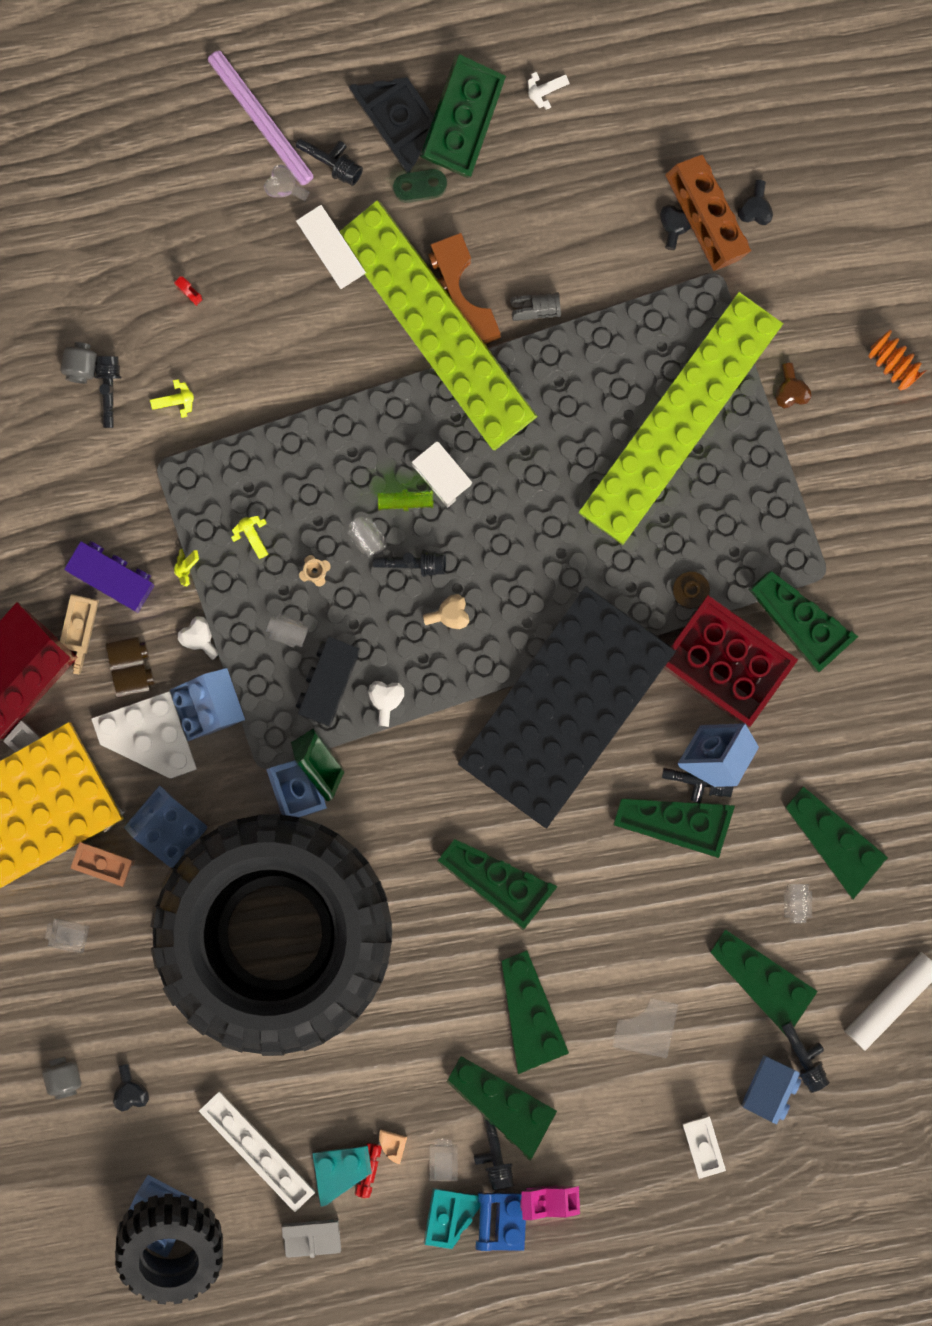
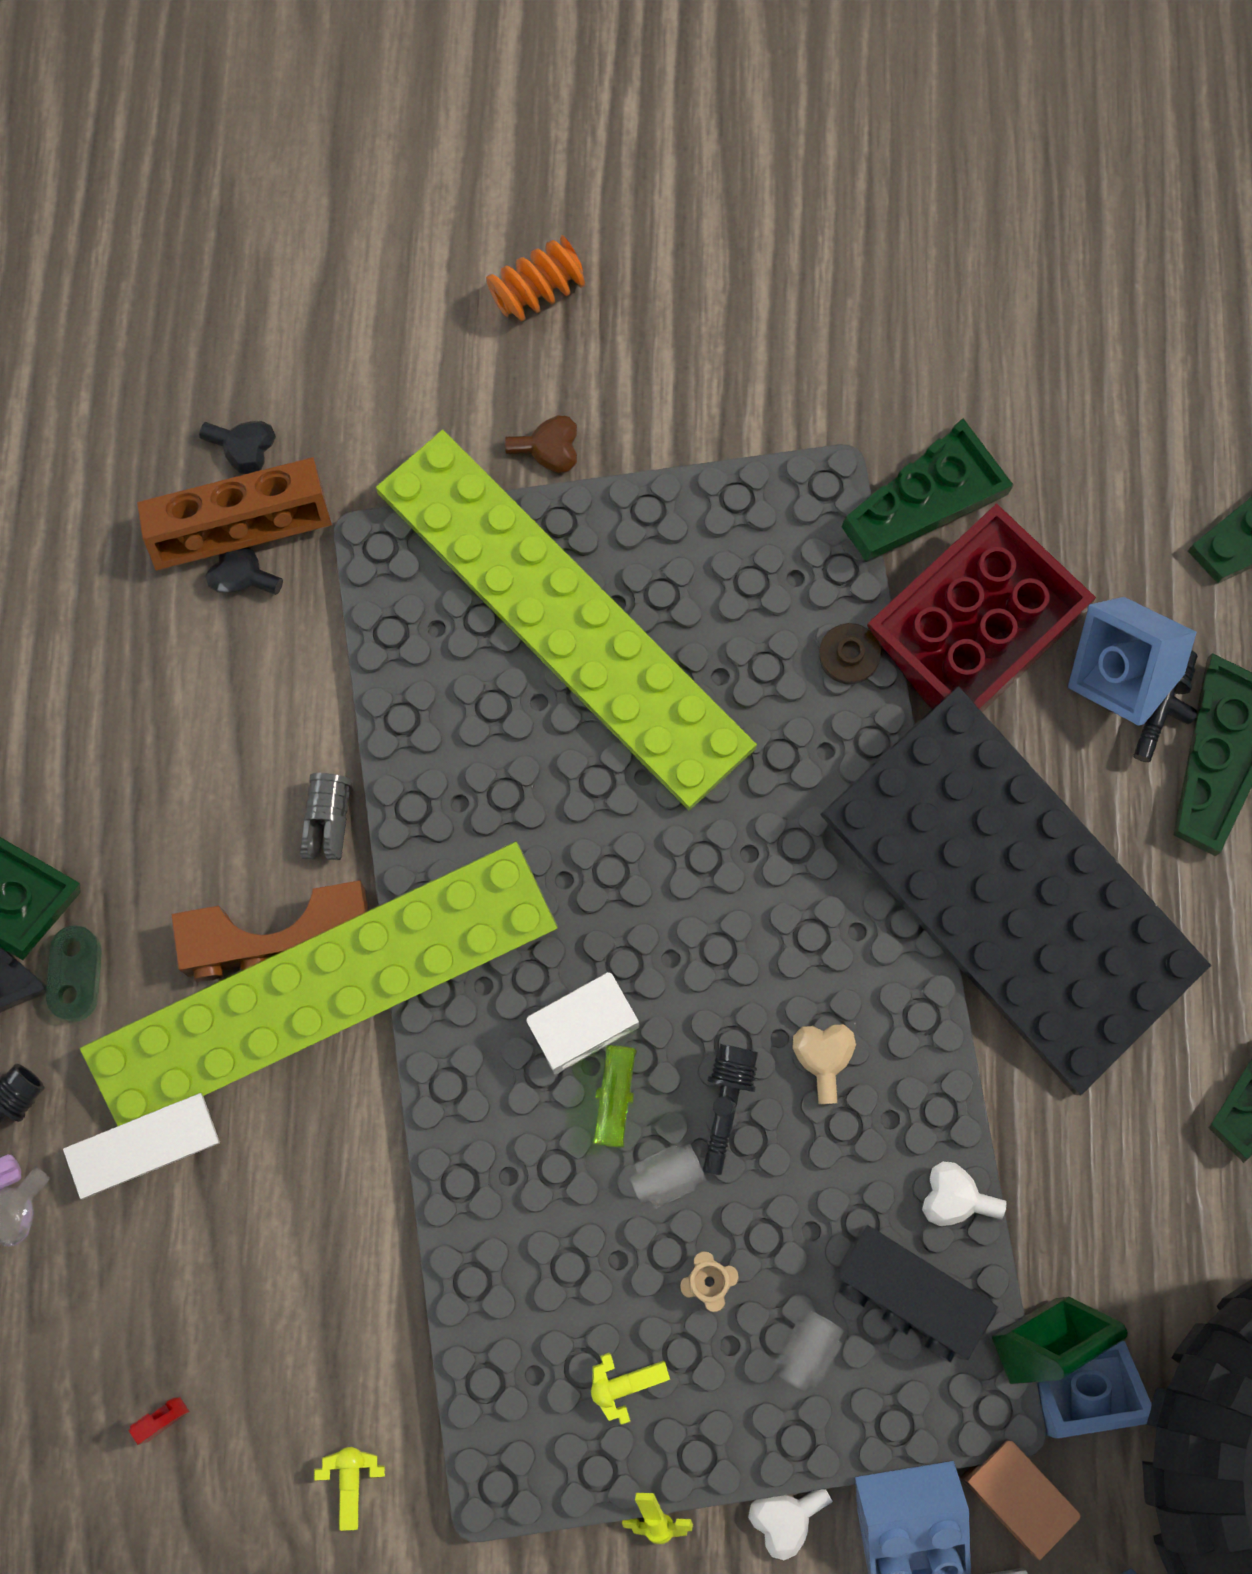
camera: 80 degrees left, 10 degrees down
(232, 759) = (1022, 1499): none -> nougat panel

